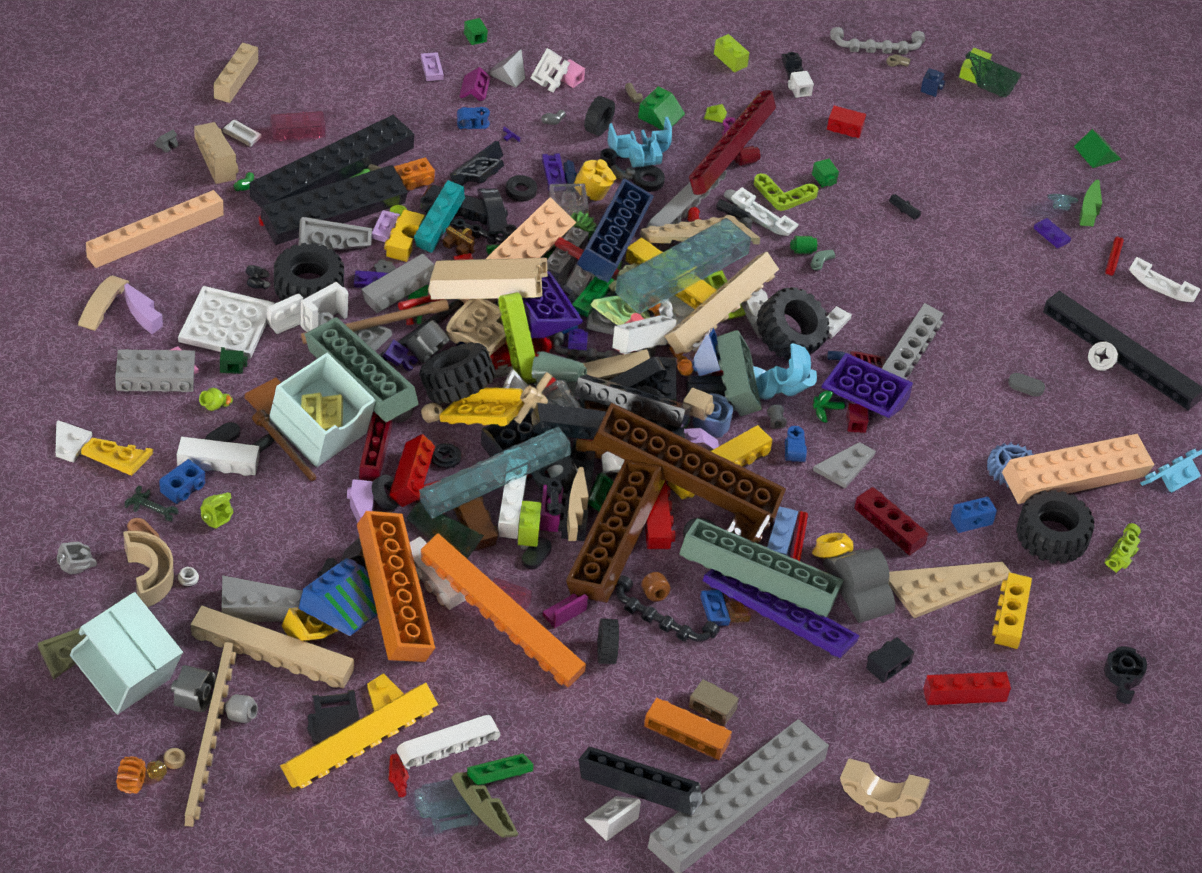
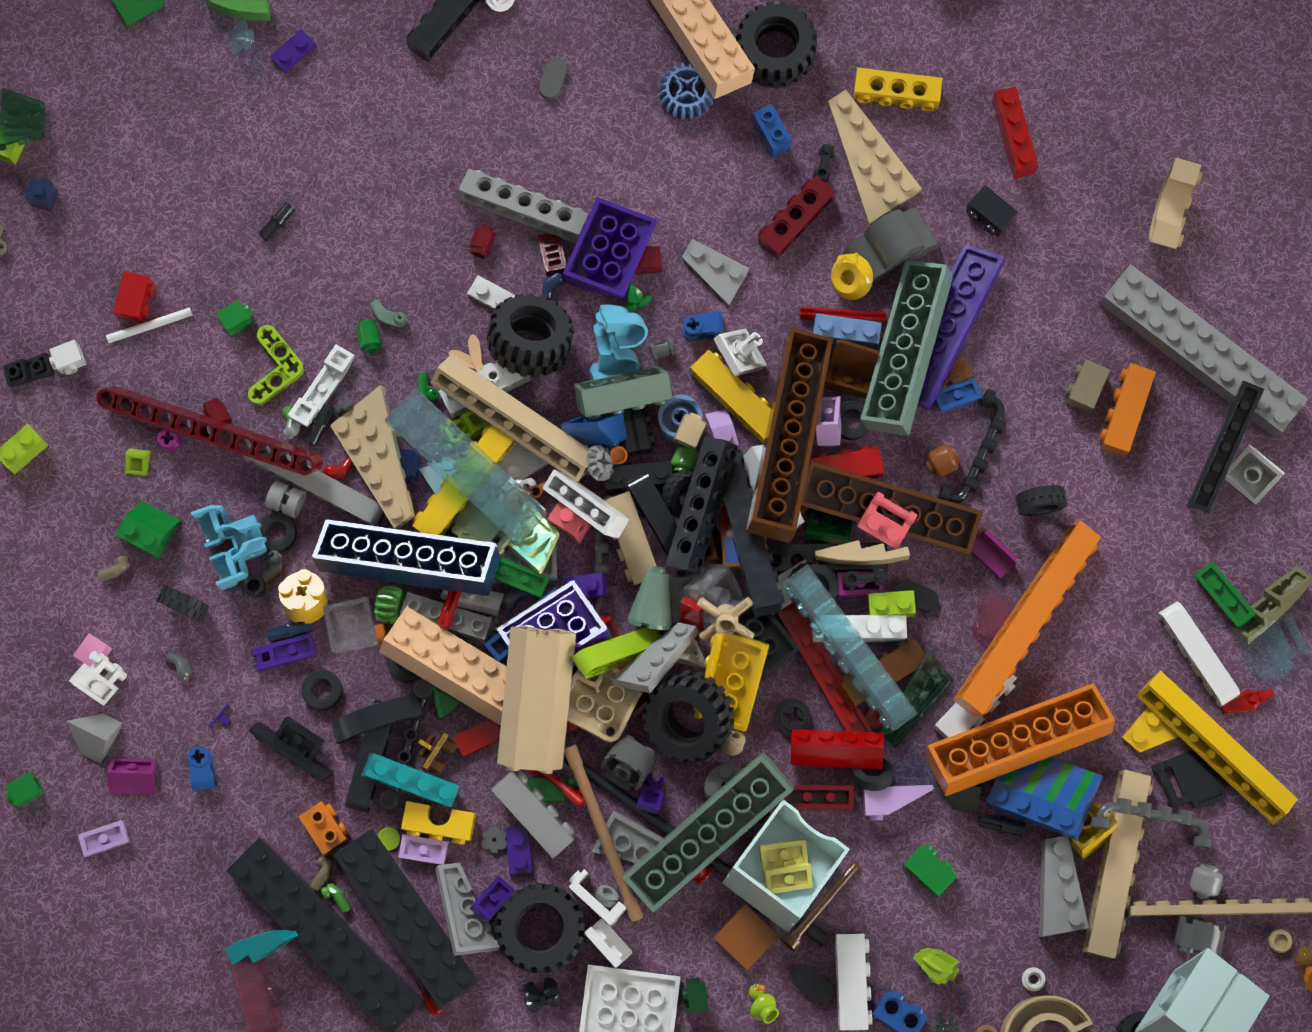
camera: 90 degrees left, 30 degrees up
(297, 520) = (930, 870): none -> green brick
(307, 680) = (1162, 814): none -> dark grey bar
(333, 125) = (259, 945): none -> teal slope
(336, 244) = (492, 899): none -> dark purple plate
(505, 353) = (654, 662): none -> light grey wing
(597, 515) = (883, 527): none -> coral plate
(671, 352) = (598, 470): none -> light grey gear
(674, 181) = (278, 496): none -> light grey wheel
(699, 505) = (829, 422): none -> lavender slope
(775, 459) = (741, 351): none -> white plate
(824, 132) = (149, 325): none -> white bar
(880, 319) = (482, 241): none -> dark red brick
(930, 545) = (827, 152): none -> black bar

